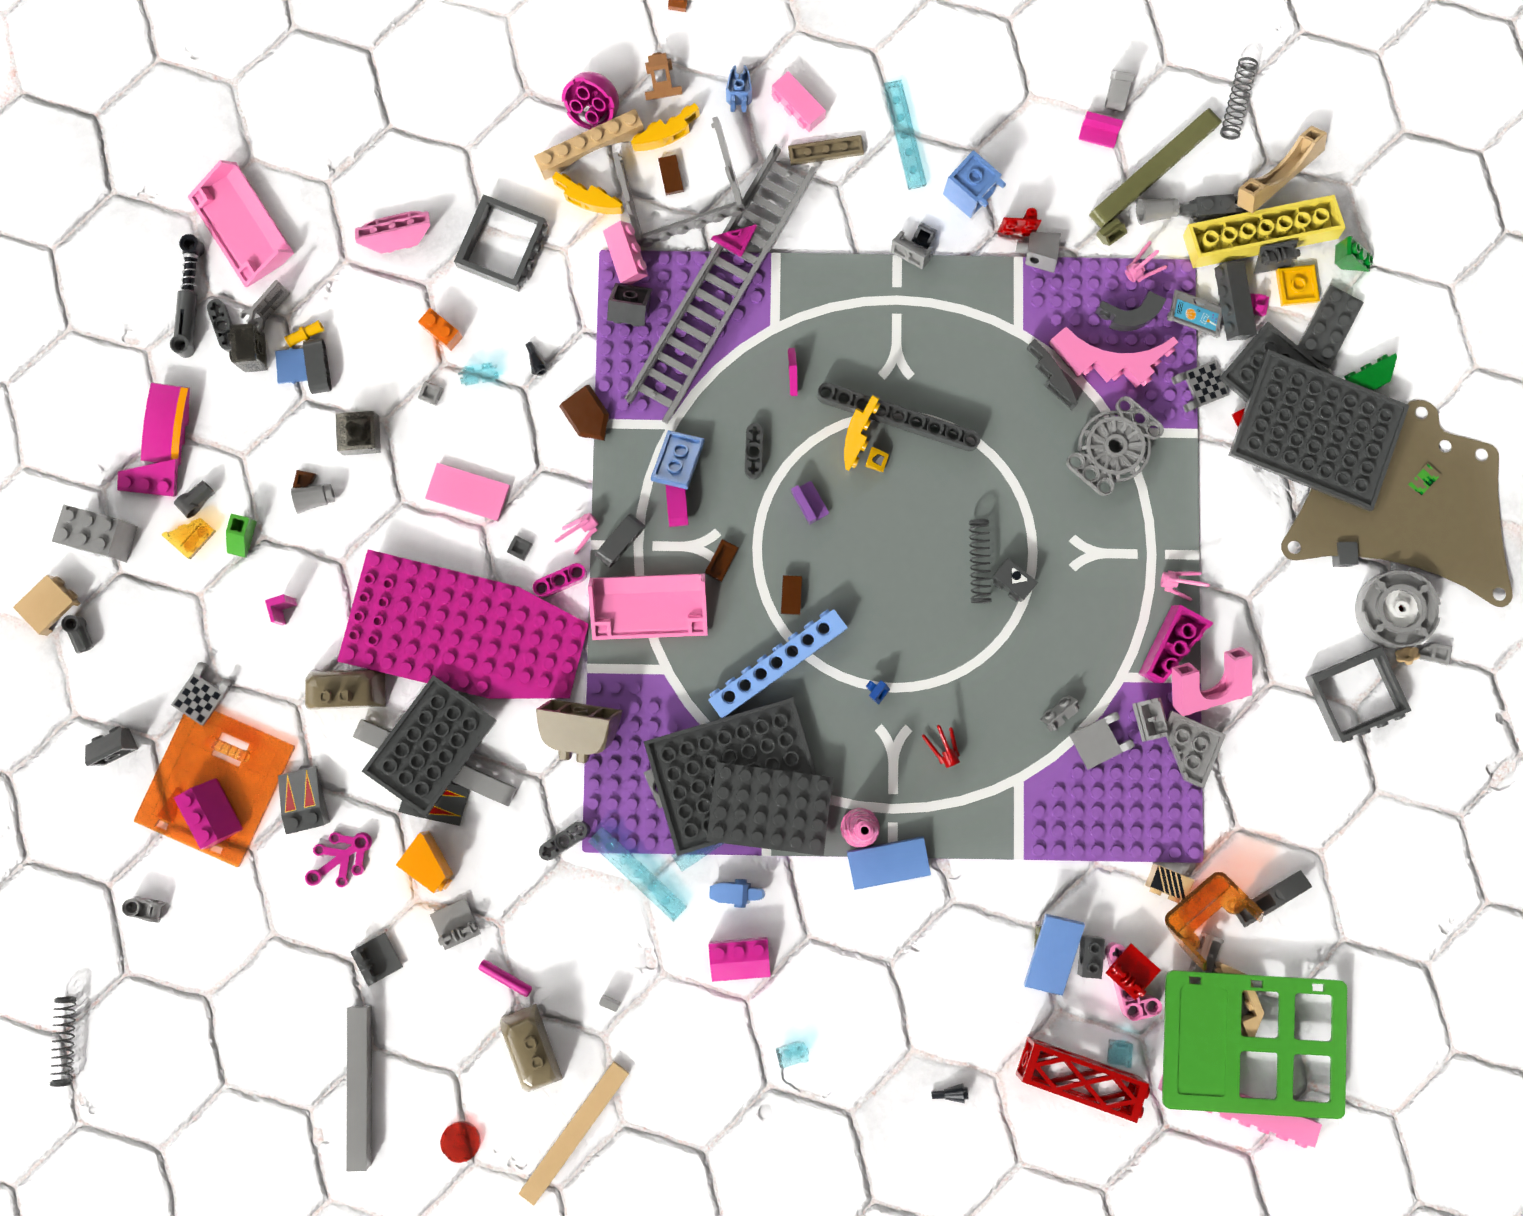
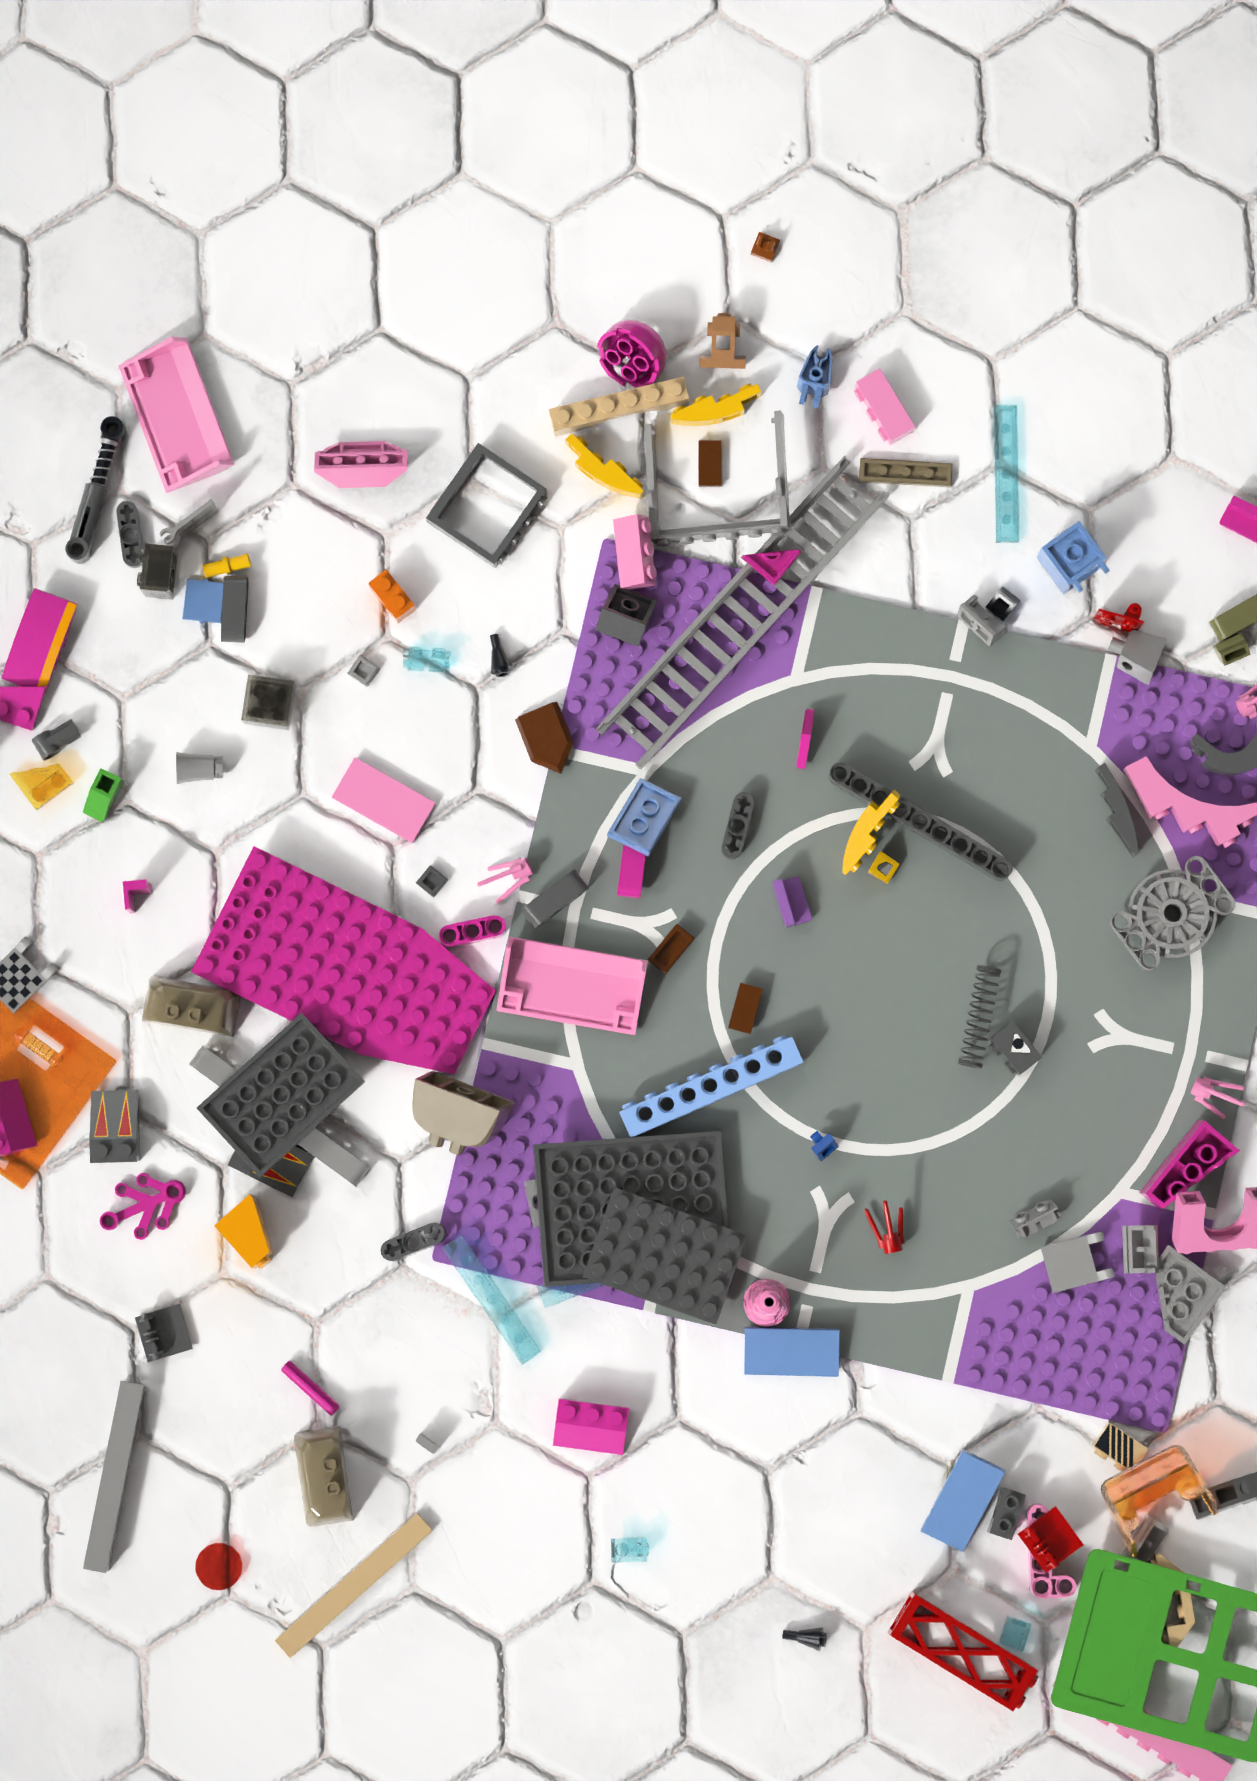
camera: 15 degrees right, 0 degrees up
(303, 479) = (190, 742): reddish brown tile -> none
(455, 924) = (264, 1312): light grey hinge -> none
(736, 893) = (605, 1347): medium blue hinge -> none

